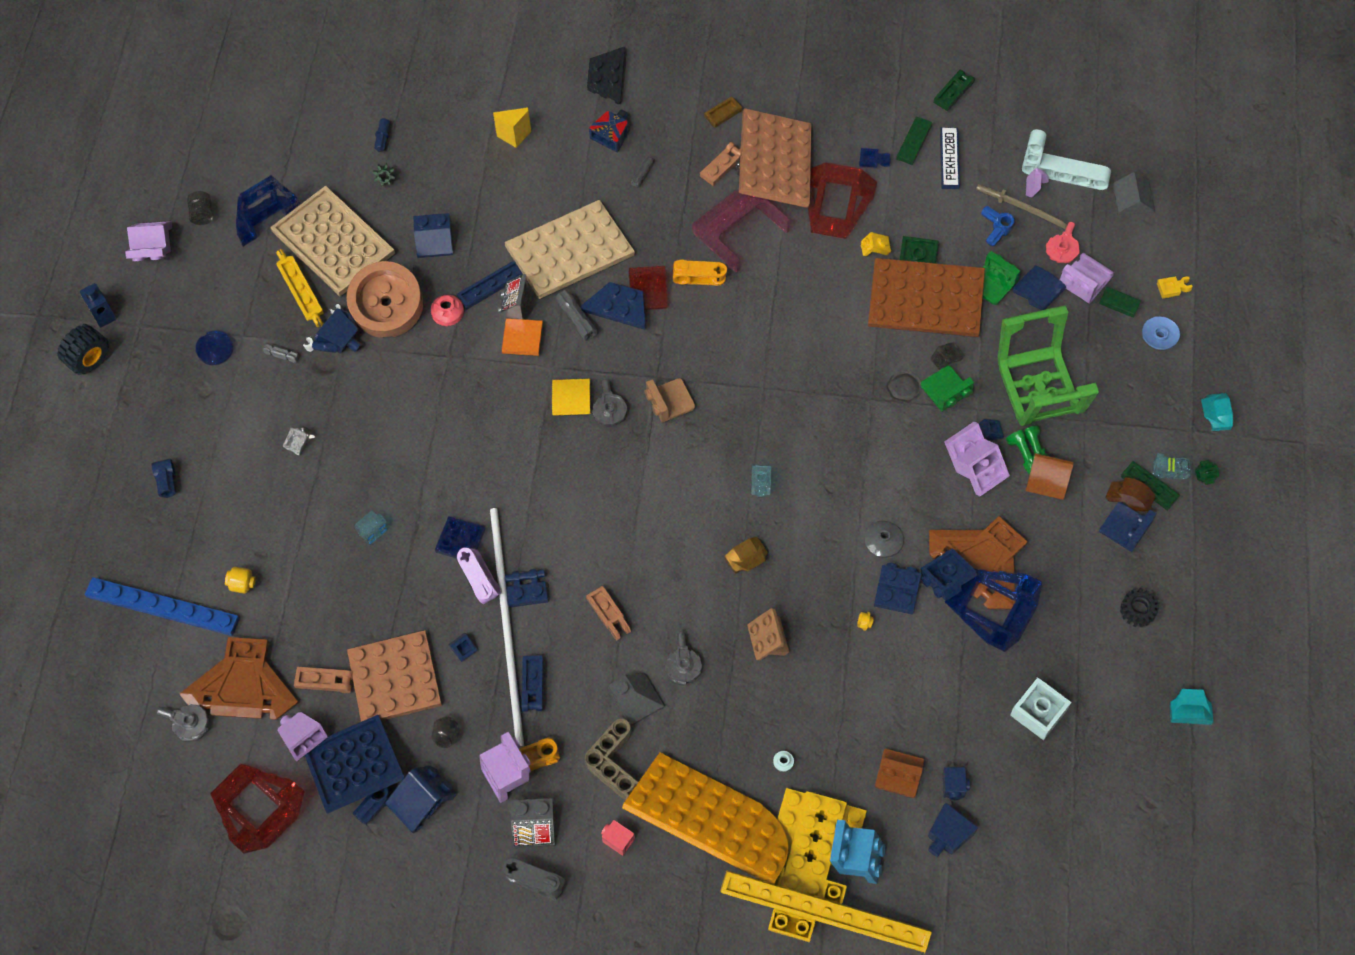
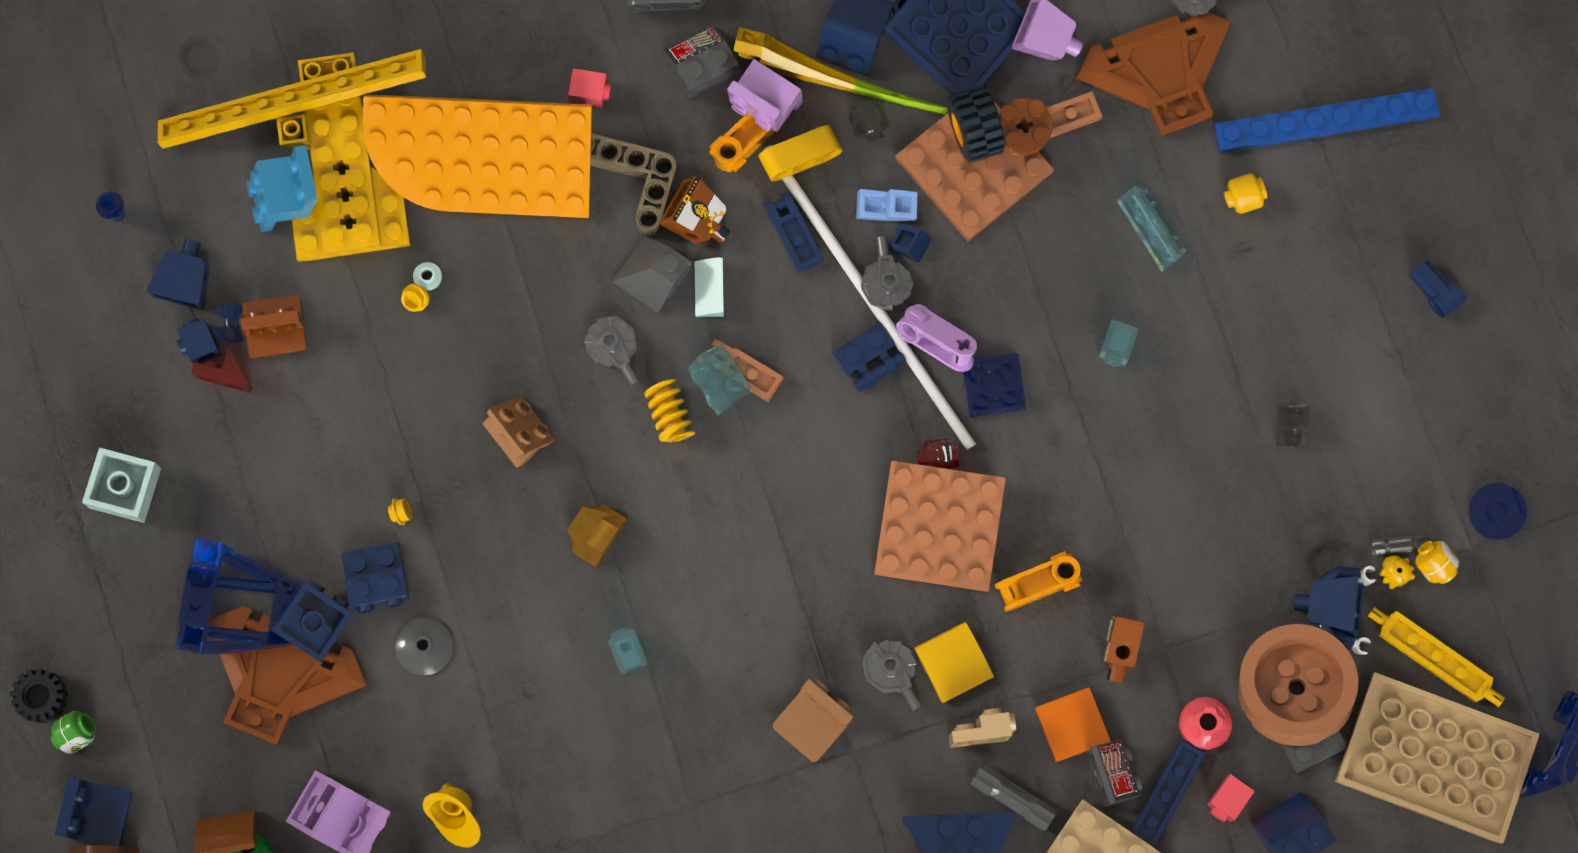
camera: 150 degrees right, 15 degrees up
(266, 330) = (1437, 562): none -> yellow head
(293, 343) = (1390, 572): none -> yellow animal
(309, 586) = (1150, 227): none -> clear light blue plate
(345, 669) = (1034, 113): none -> dark orange plate
(379, 683) = (976, 123): none -> black wheel
(457, 265) = (1229, 799): none -> coral brick
(464, 675) = (886, 206): none -> light blue slope
(468, 363) = (1122, 632): none -> dark orange torso
(477, 793) = (793, 64): none -> yellow plate
(490, 627) = (885, 281): none -> flat silver piece
(491, 728) = (800, 153): none -> yellow beam
(497, 417) = (1039, 582): none -> light orange piece
(517, 509) = (939, 454): none -> clear red head
(537, 470) = (939, 525): none -> nougat plate
(573, 347) = (990, 728): none -> tan plate
(589, 718) = (695, 213): none -> torso
(603, 673) = (709, 288): none -> light aqua slope
(626, 610) = (719, 379): none -> clear light blue bracket
(667, 604) = (667, 411): none -> yellow piece
(798, 749) = (415, 298): none -> yellow plate
(905, 435) = (452, 815): none -> yellow piece
(927, 793) = (230, 331): none -> dark blue piece
(942, 750) = (229, 376): none -> clear red slope
(982, 893) = (110, 201): none -> clear blue cone
(1124, 575) = (73, 732): none -> bright green head

